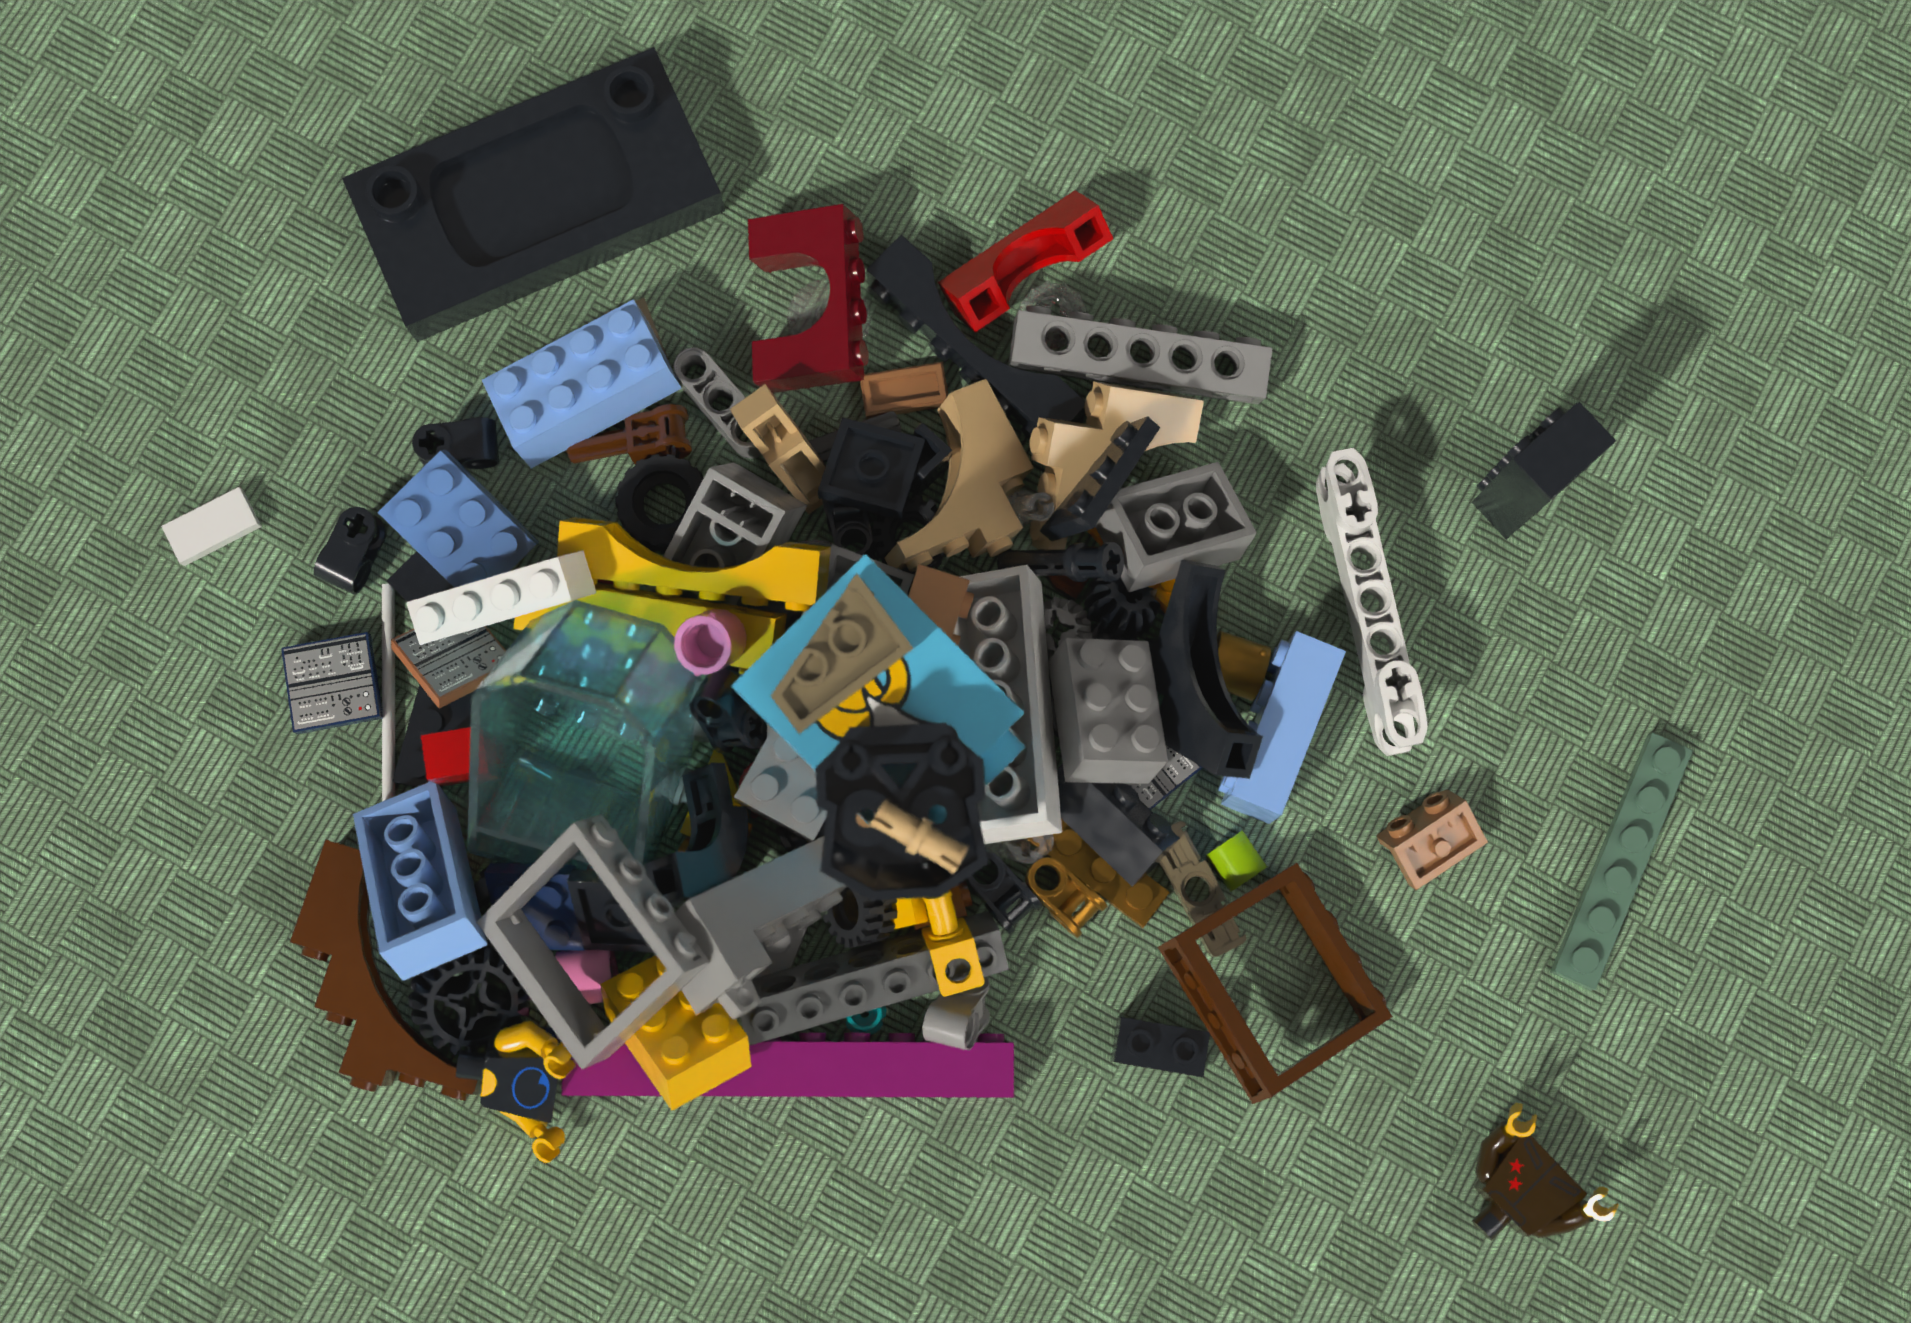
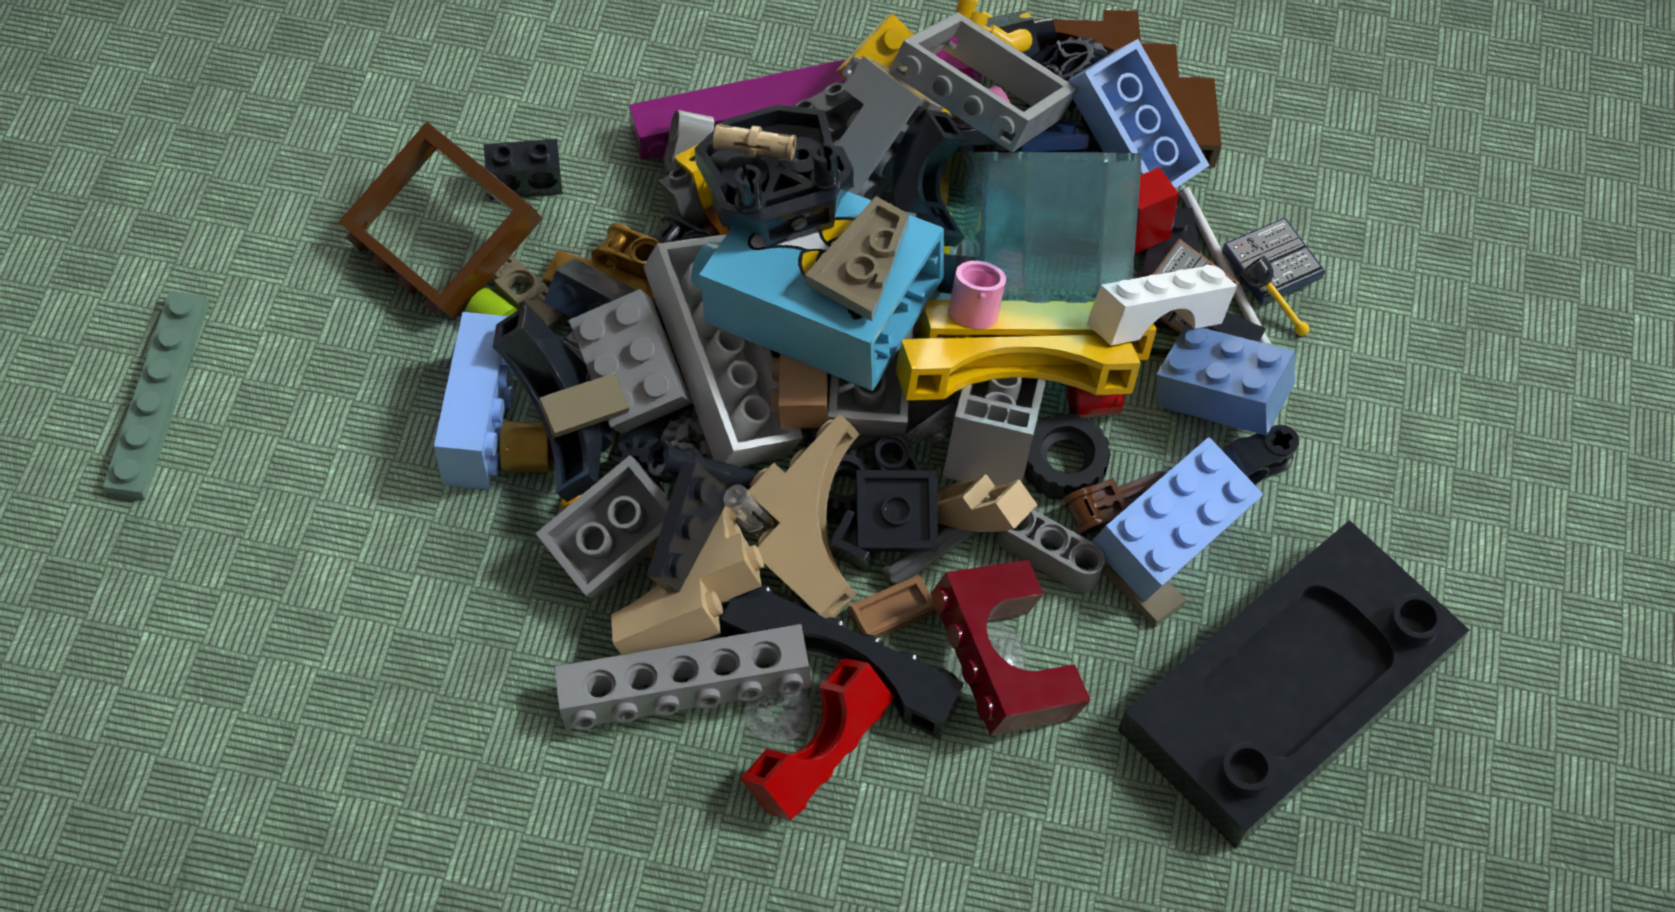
camera: 160 degrees right, 20 degrees down
(211, 526) = (1429, 351): white tile -> none
(350, 555) = (1311, 356): black piece -> none
(361, 652) = (1259, 275): none -> hinge
(1176, 647) = (584, 405): none -> dark tan tile
(1390, 682) = (446, 568): white piece -> none
(1432, 837) = (329, 367): medium nougat bracket -> none
(1529, 1186) = (203, 145): dark brown torso -> none
(1541, 467) = (278, 636): black brick -> none

